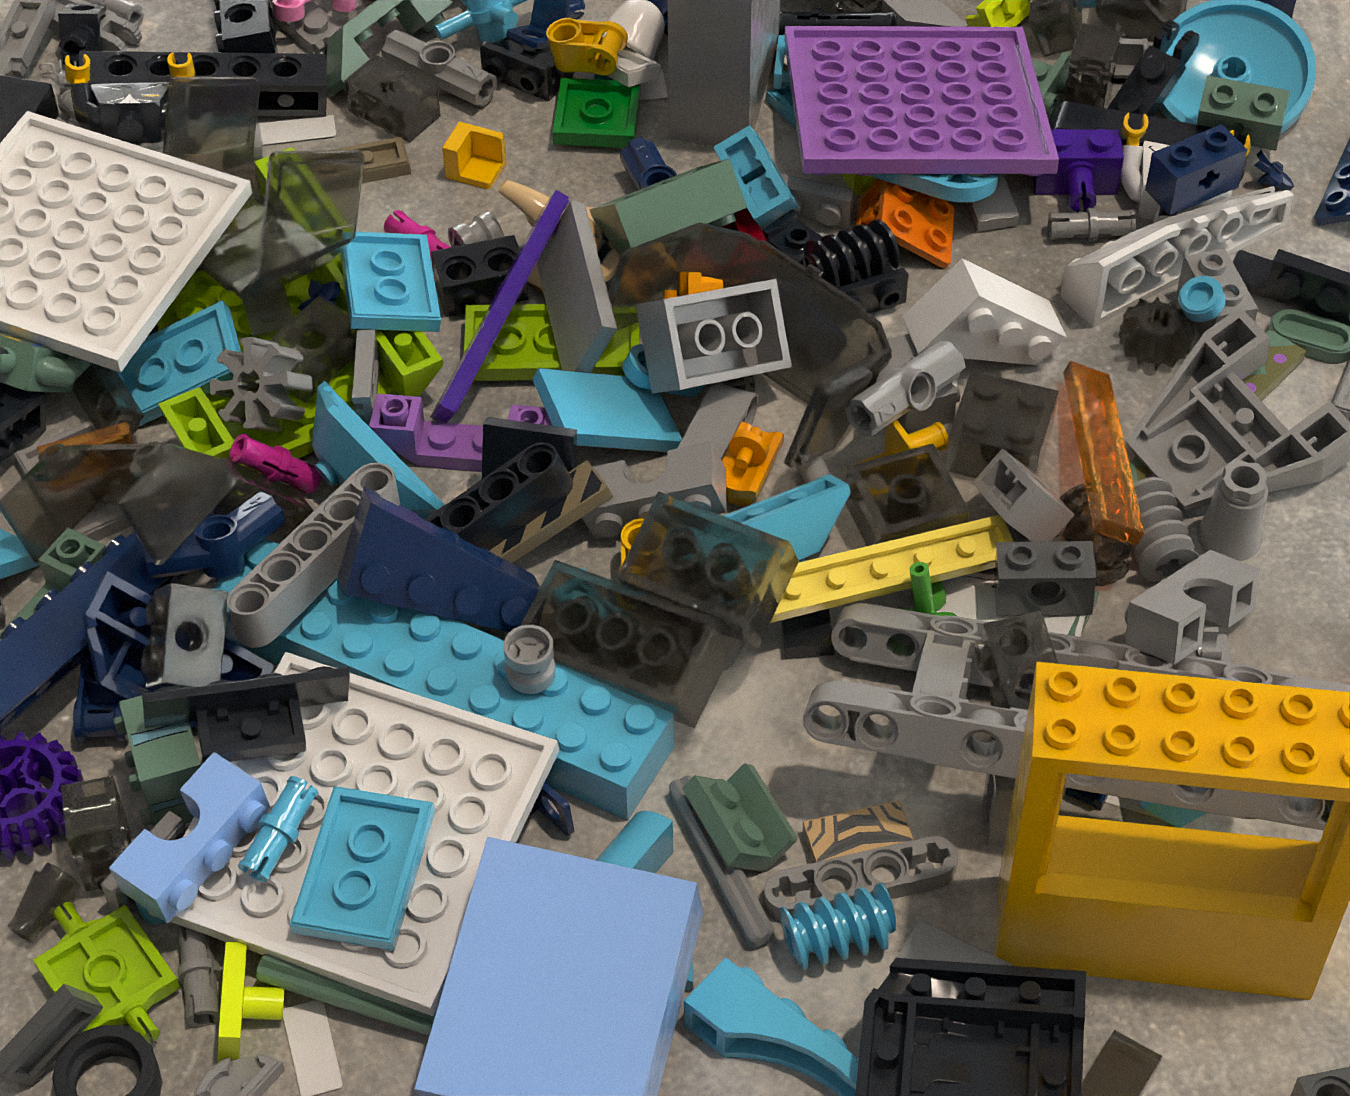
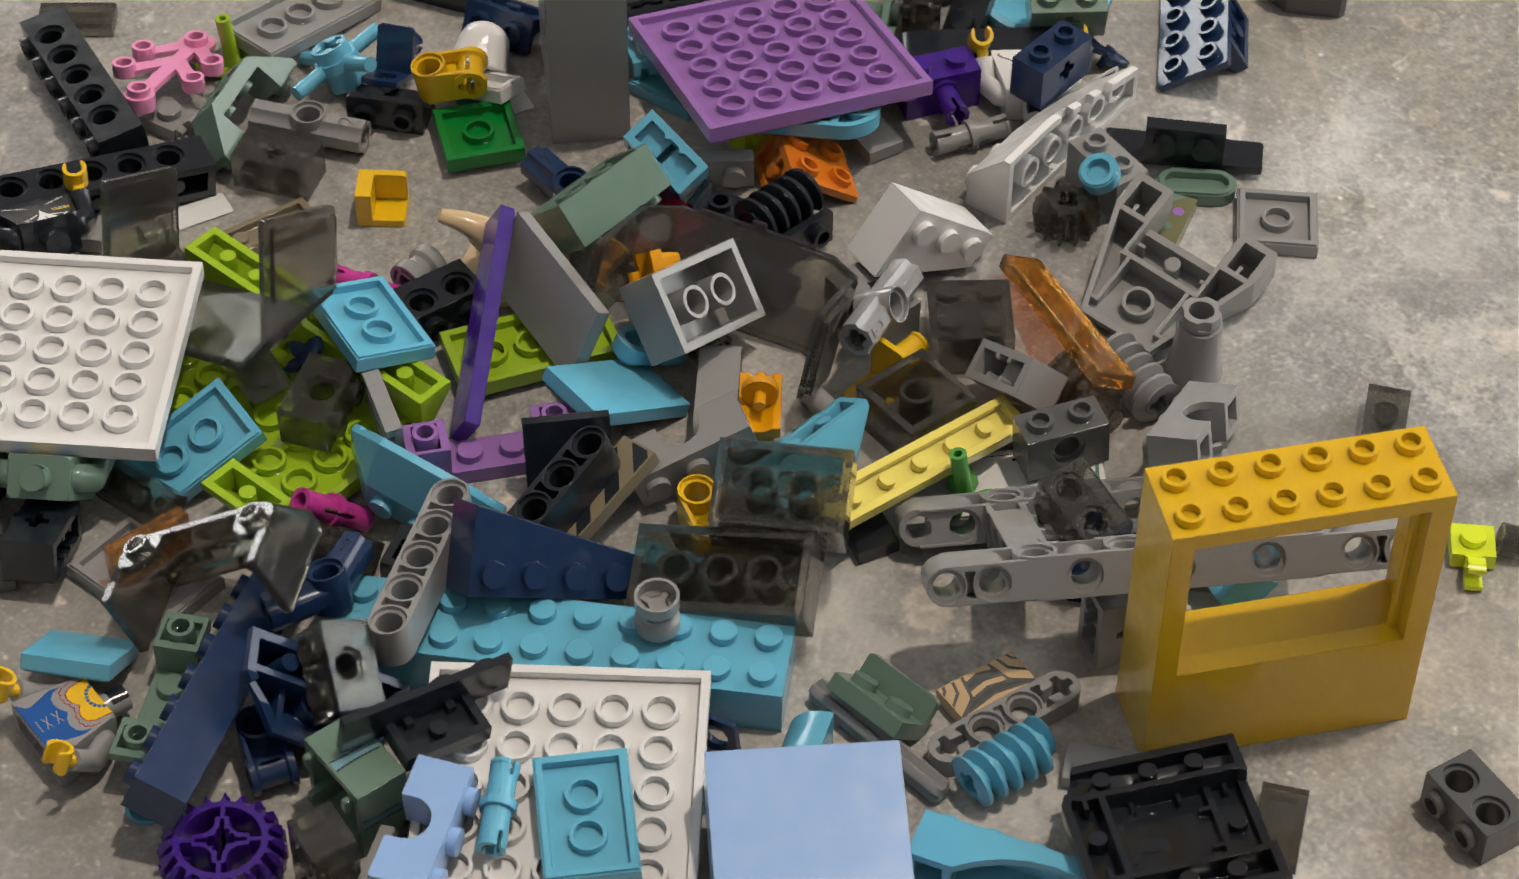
camera: 20 degrees left, 5 degrees down
(260, 385) = (303, 426): light grey gear -> none

